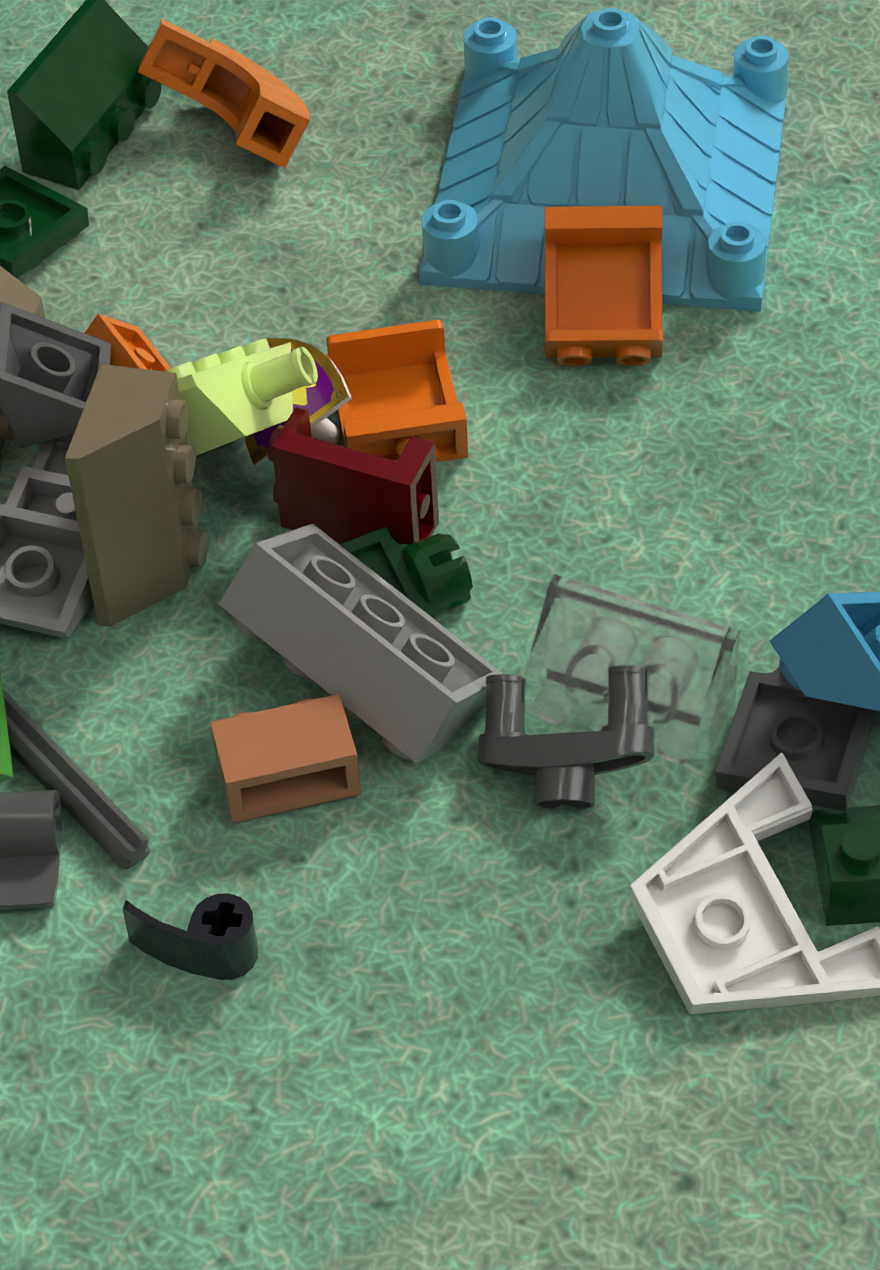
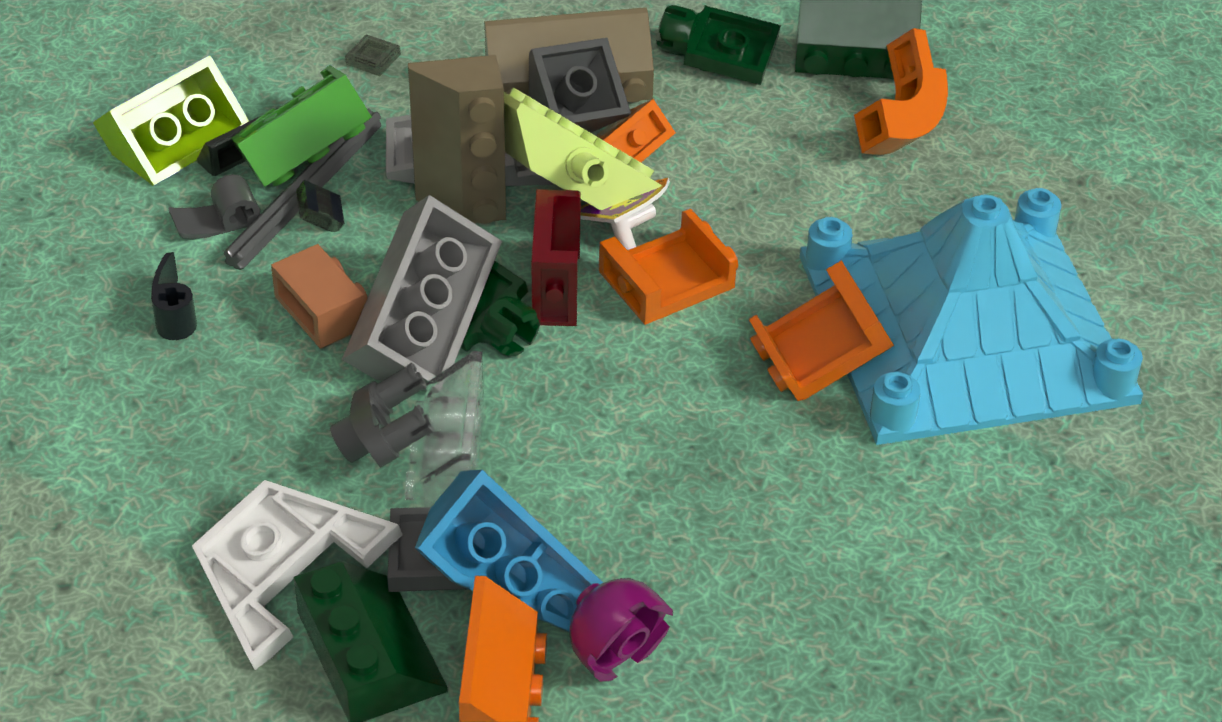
camera: 65 degrees right, 5 degrees down
(86, 725) = (320, 206): none -> clear smoke tile

